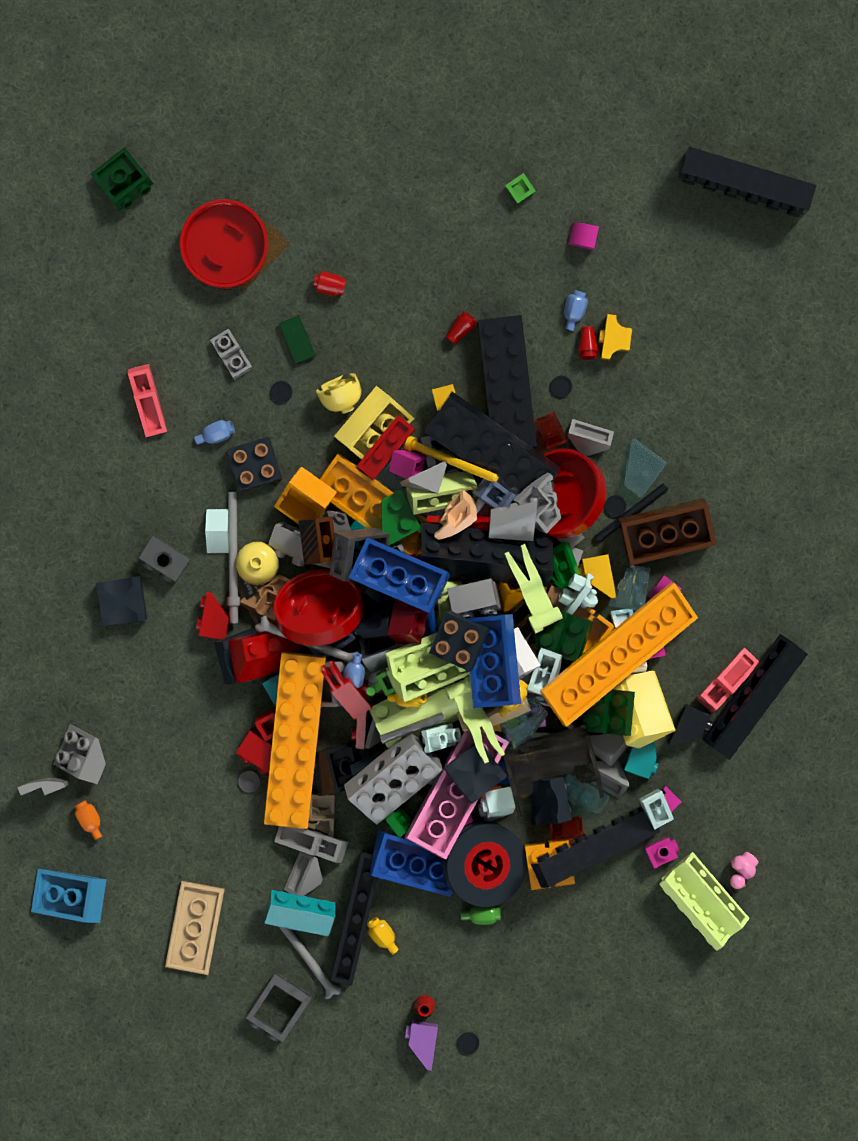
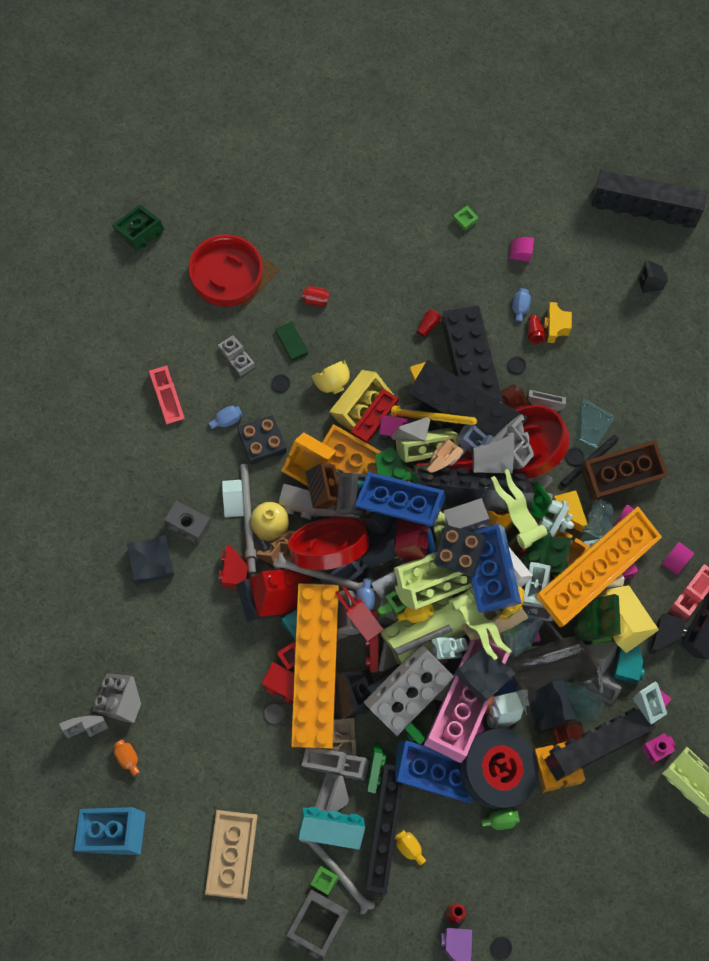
camera: 10 degrees left, 20 degrees down
(290, 963) = (324, 880): none -> bright green plate
(354, 846) = (377, 761): none -> green wing
(715, 639) = (678, 558): none -> dark pink brick
(738, 287) = (652, 277): none -> black slope

